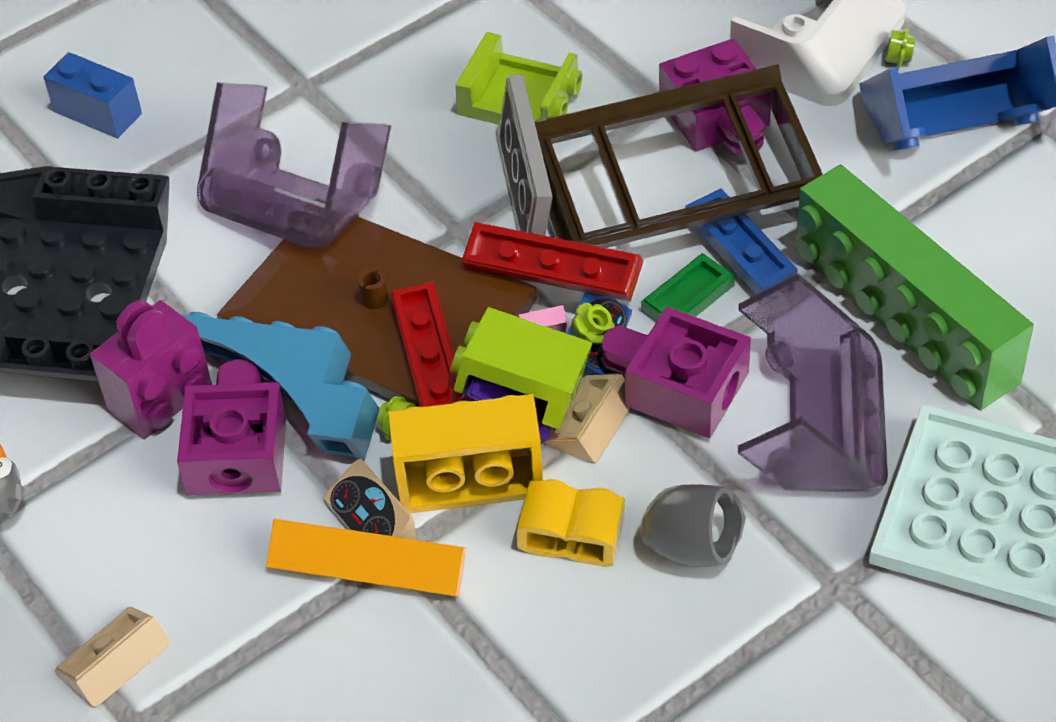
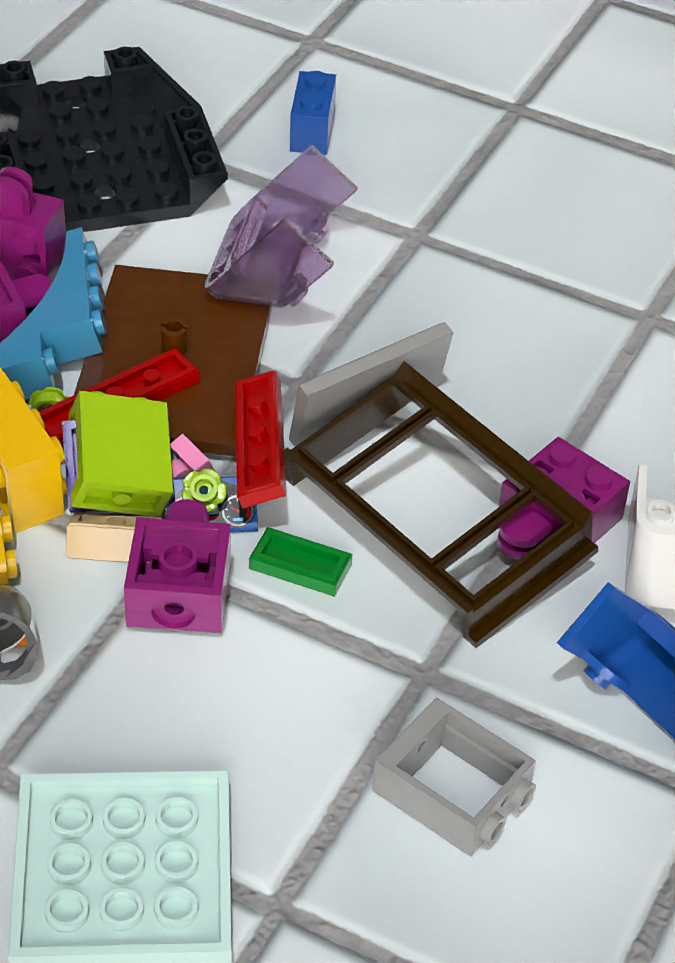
camera: 60 degrees right, 5 degrees down
(484, 80) = (492, 361): lime panel -> none
(745, 248) = (373, 584): blue plate -> none
(834, 394) = (198, 714): clear purple windscreen -> none
(912, 287) = (358, 716): bright green brick -> none
(1010, 231) = (447, 727): none -> light grey window

